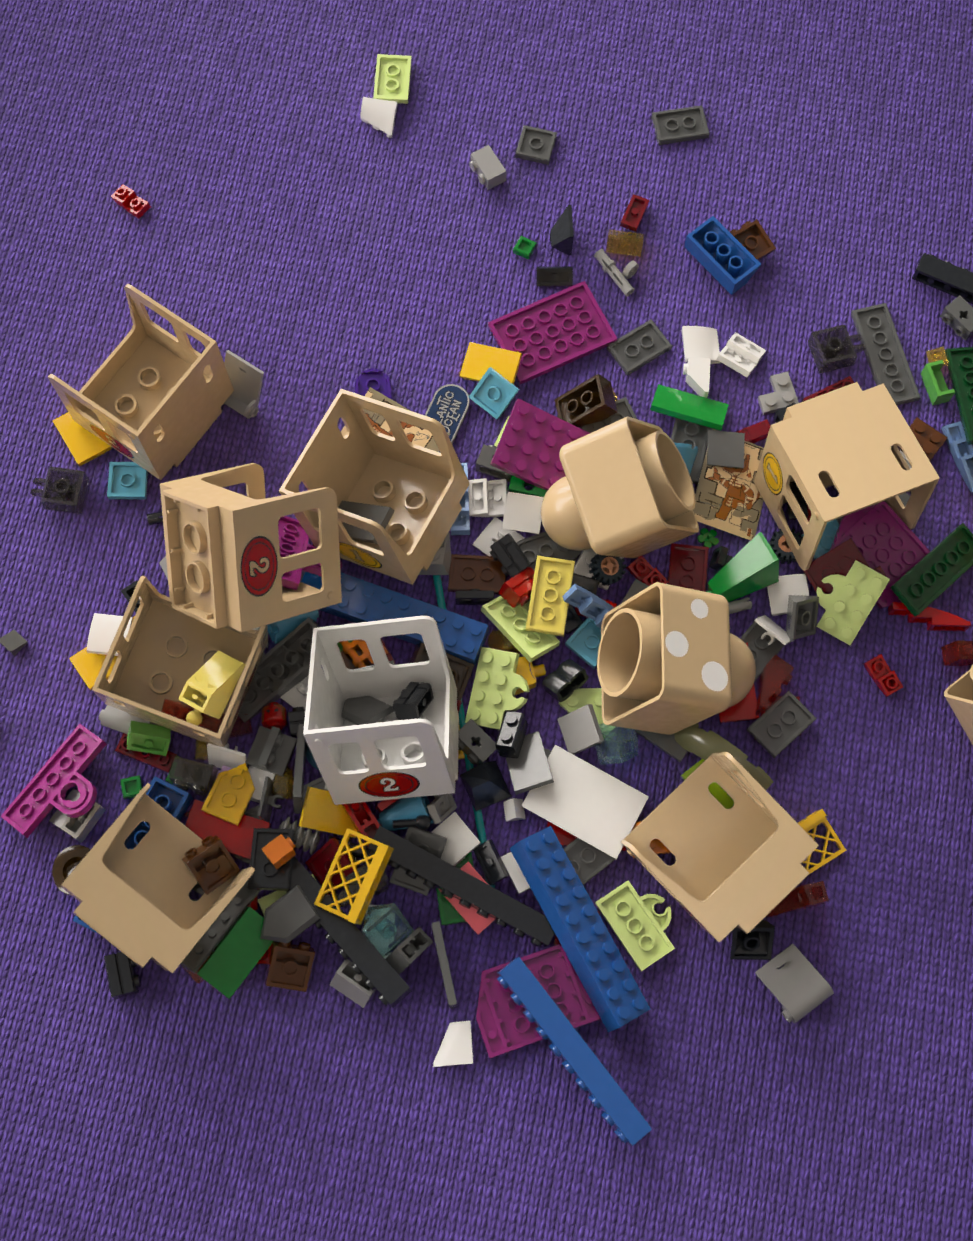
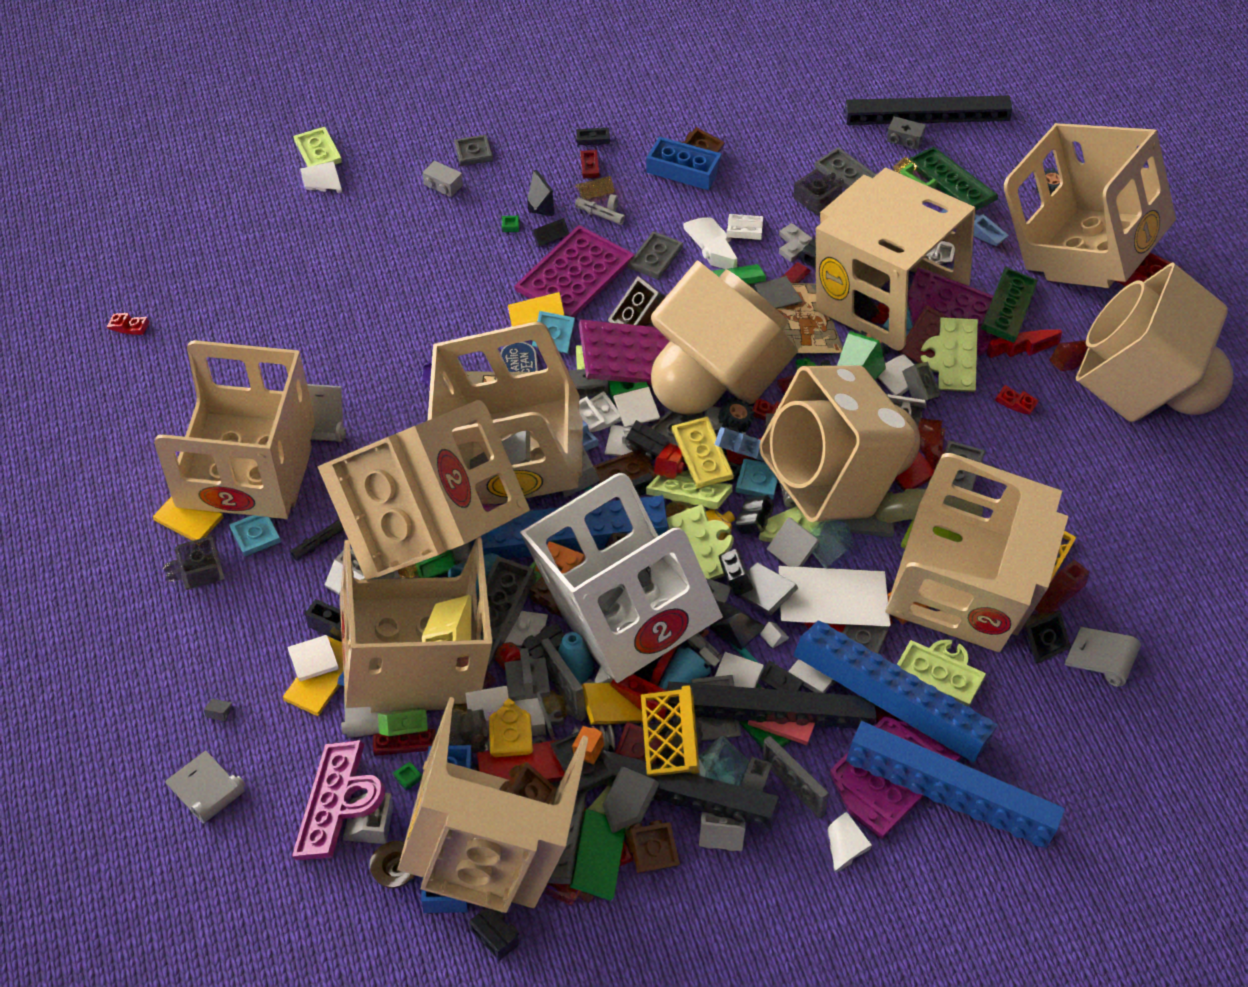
camera: 25 degrees left, 20 degrees down
(421, 822) = (701, 670): black bar -> none
(655, 181) = (593, 136): none -> black plate
(680, 125) = (587, 93): dark grey tile -> none

